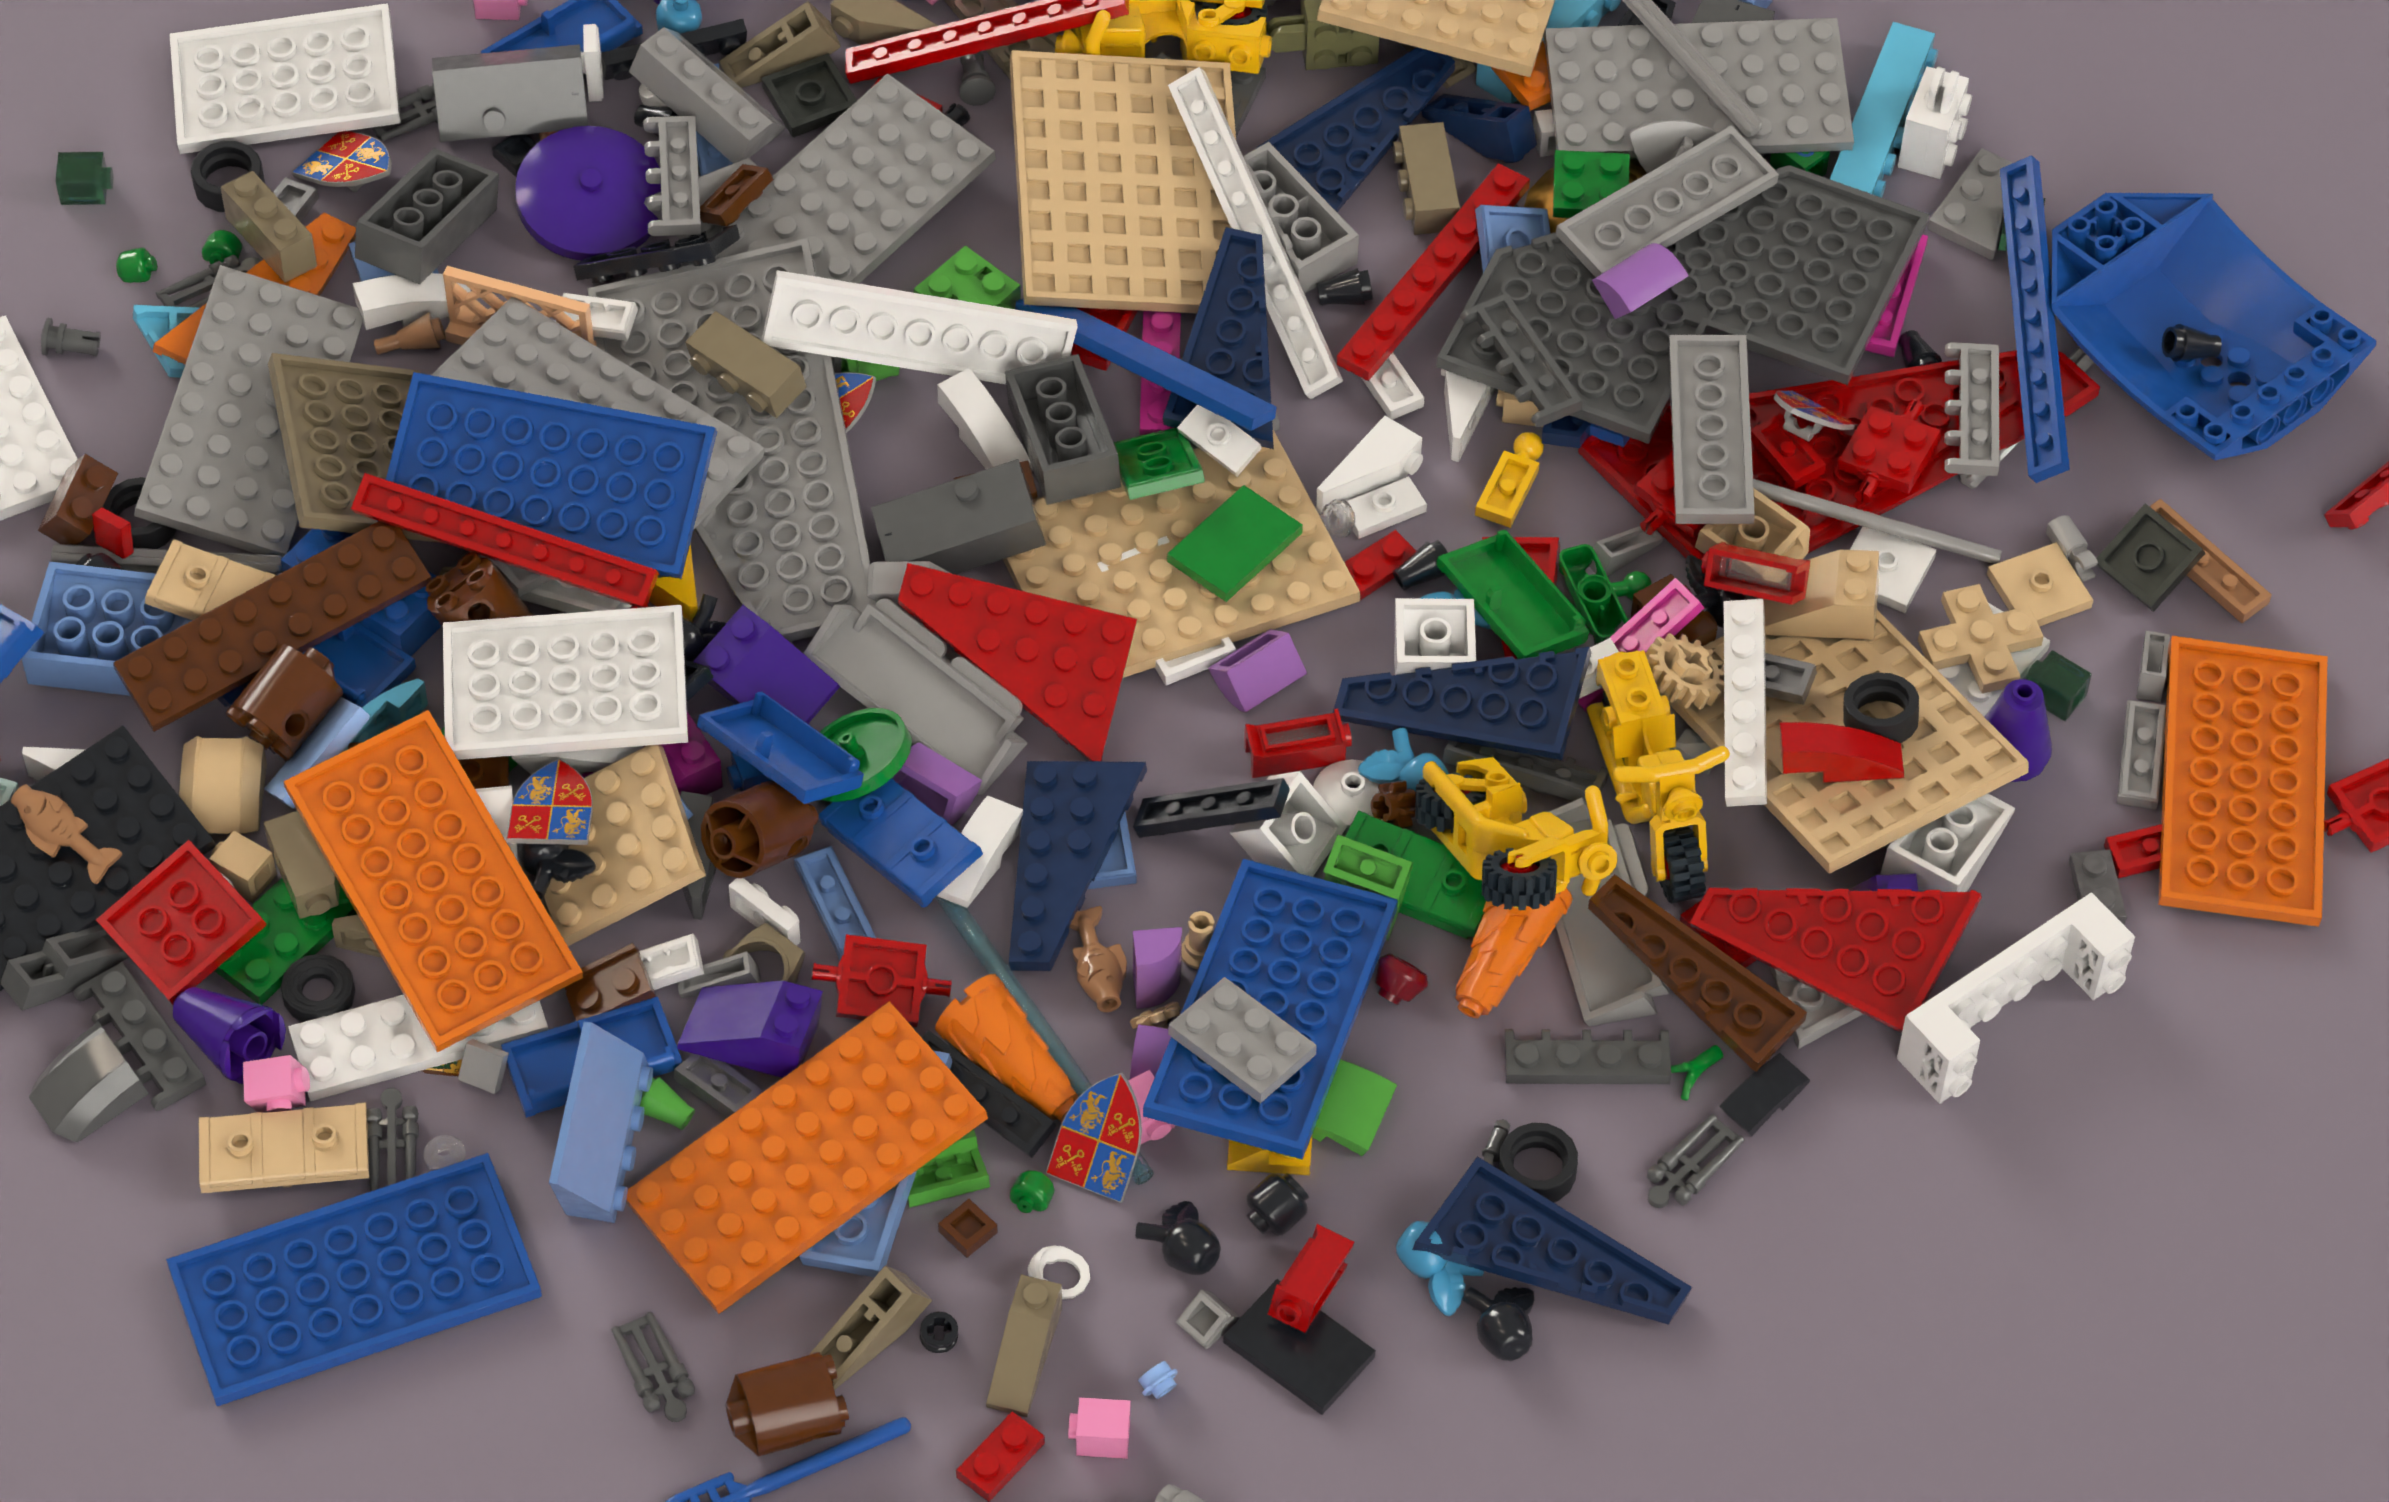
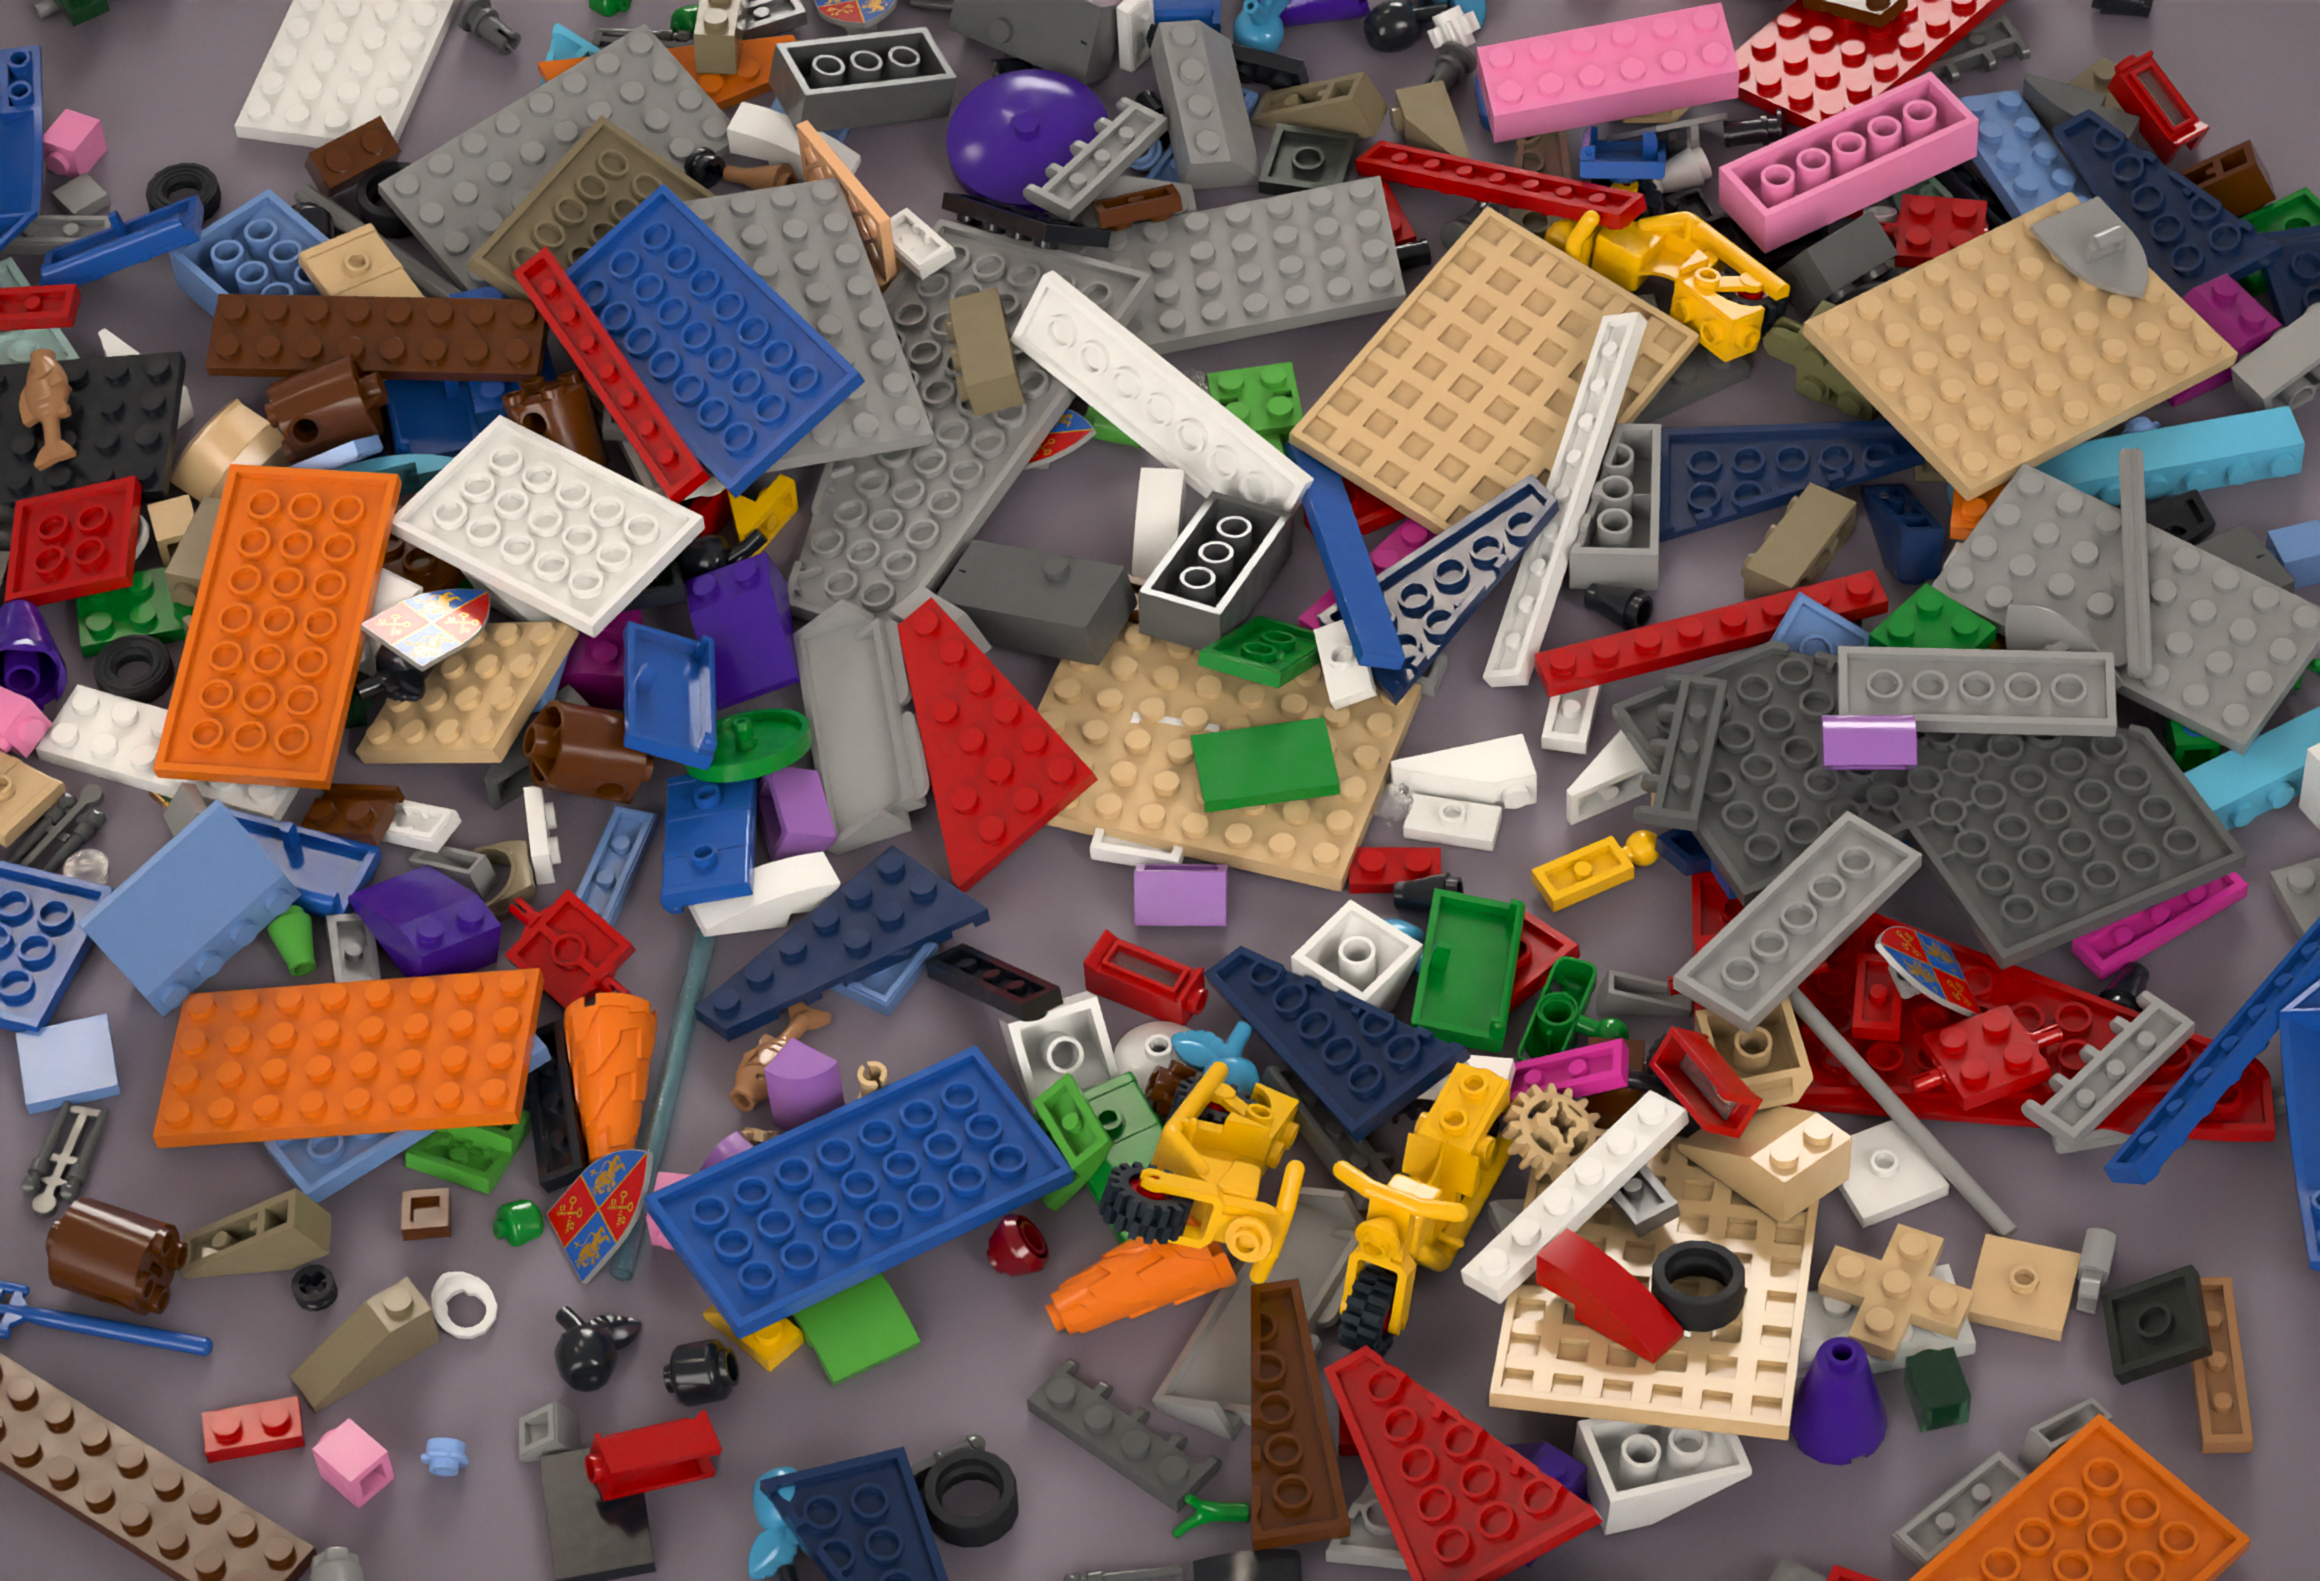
camera: 45 degrees right, 5 degrees down
(113, 533) = (348, 197): red tile -> none
(360, 350) = (705, 167): none -> black bush
(584, 1300) = (68, 1063): none -> tile
(1242, 1039) = (789, 1196): light grey plate -> none

